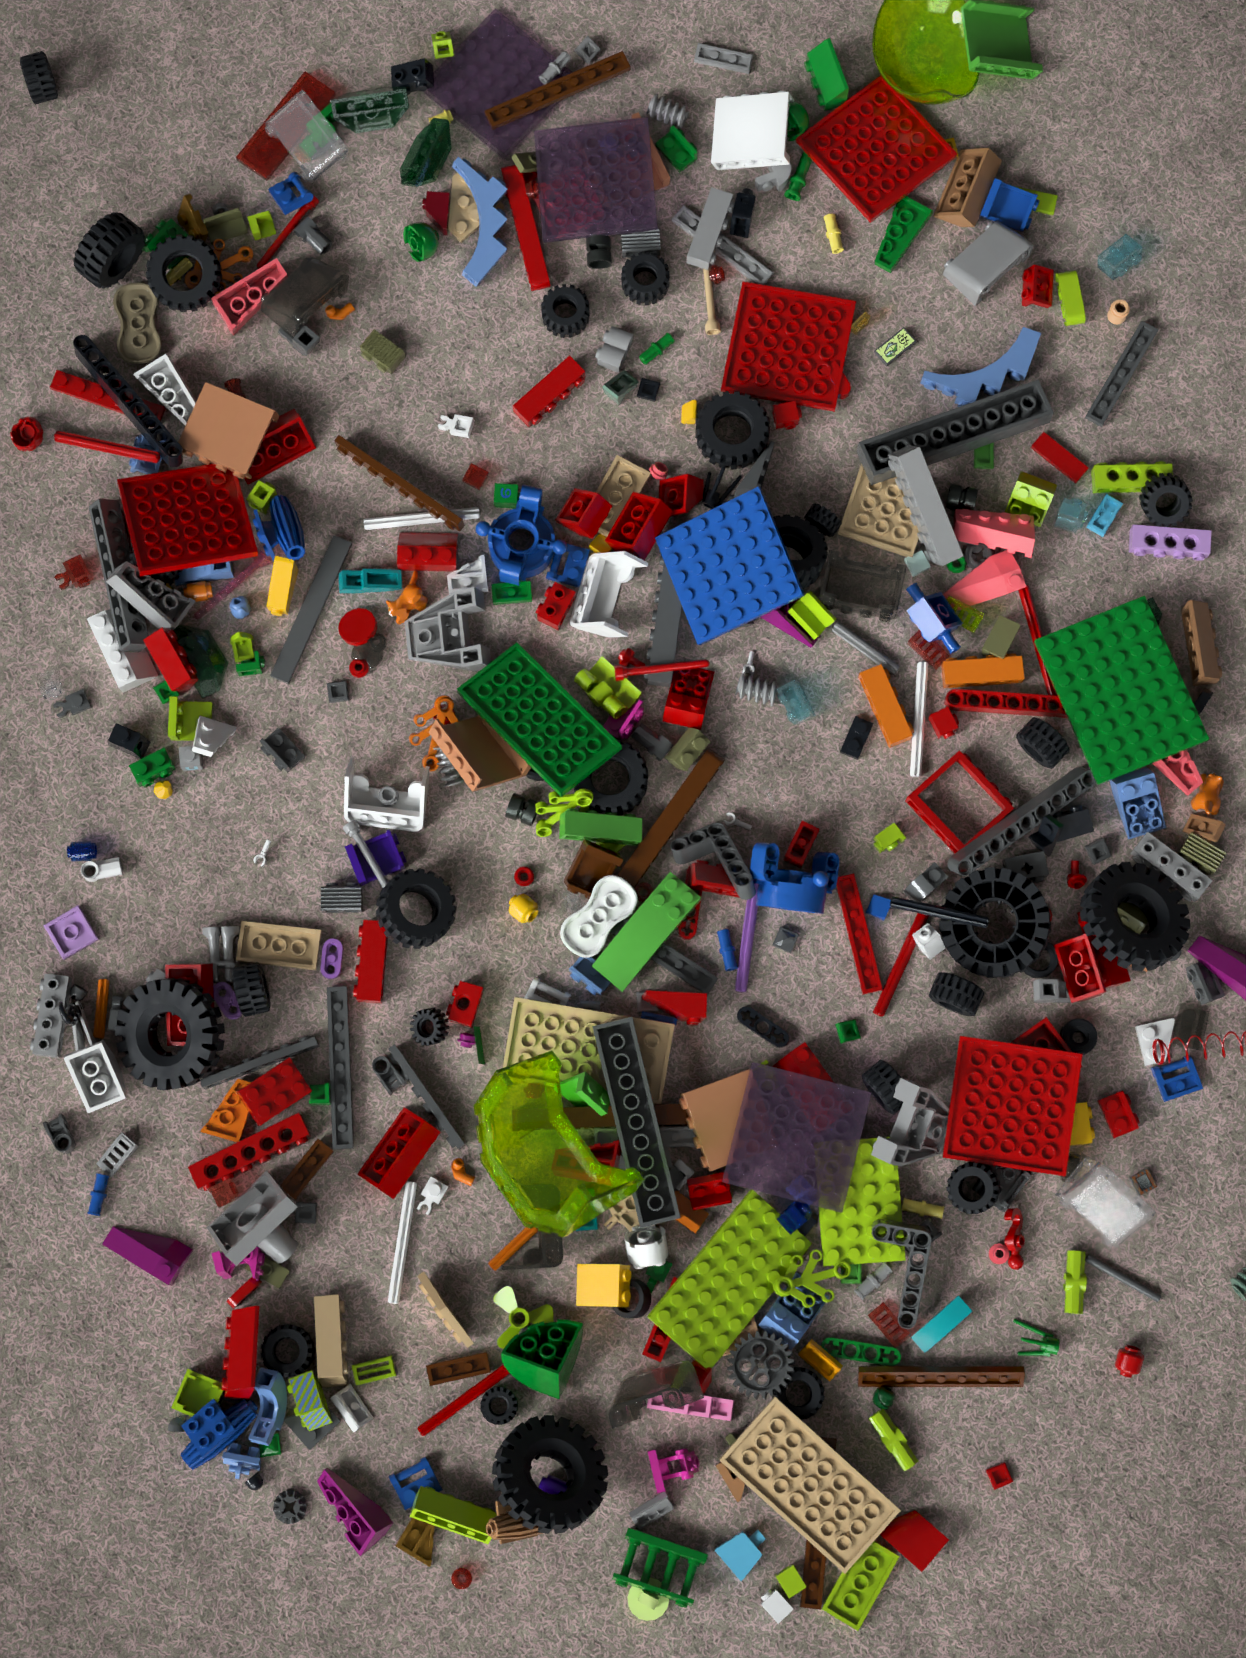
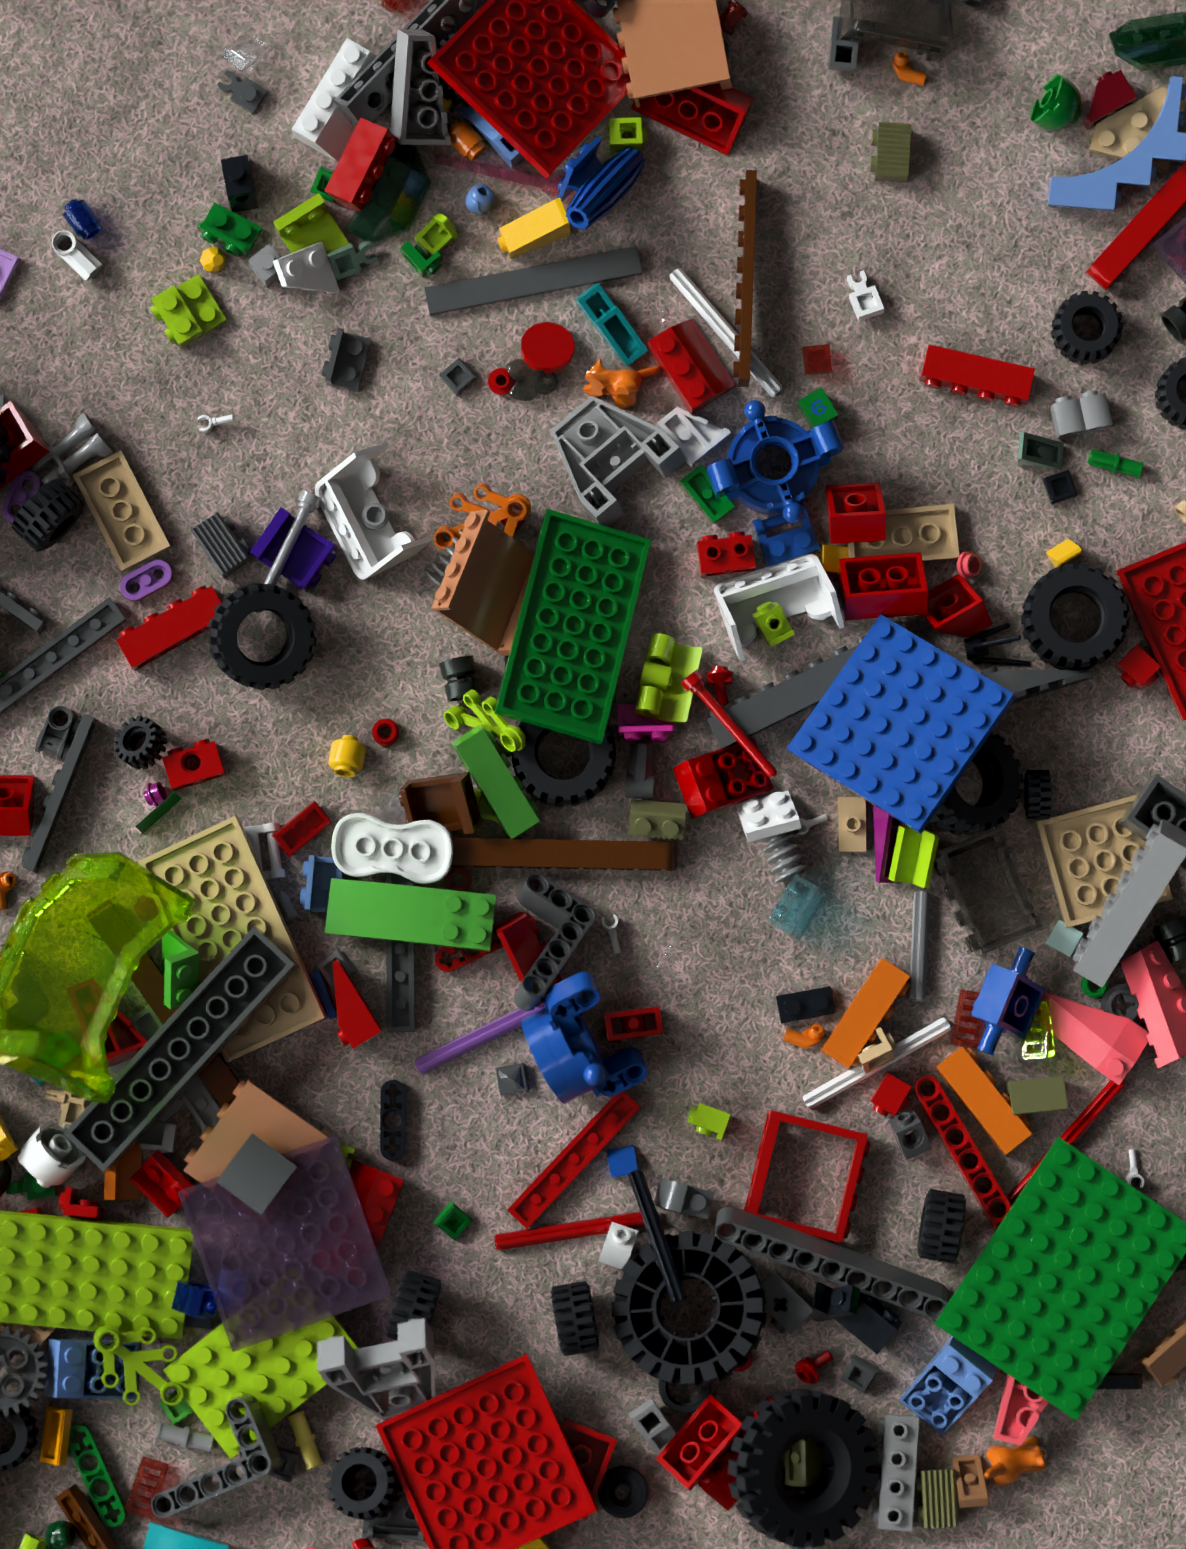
camera: 55 degrees right, 5 degrees up
(184, 825) = (187, 311): none -> lime plate
(220, 708) = (347, 260): none -> sand green plate
(548, 965) = (301, 829): none -> red plate
(609, 608) = (764, 615): none -> lime brick
(693, 1248) = (79, 1208): none -> red bracket
(727, 950) = (454, 1020): blue pin -> none
(730, 683) = (768, 816): none -> white plate
(744, 1124) = (256, 1174): none -> dark grey slope
(767, 640) = (851, 824): none -> tan plate
(877, 750) = (806, 1038): none -> orange arm
(916, 712) = (878, 1055): none -> tan bracket
(975, 726) = (916, 1141): none -> dark grey brick
(1080, 613) = (1134, 1169): none -> white hand

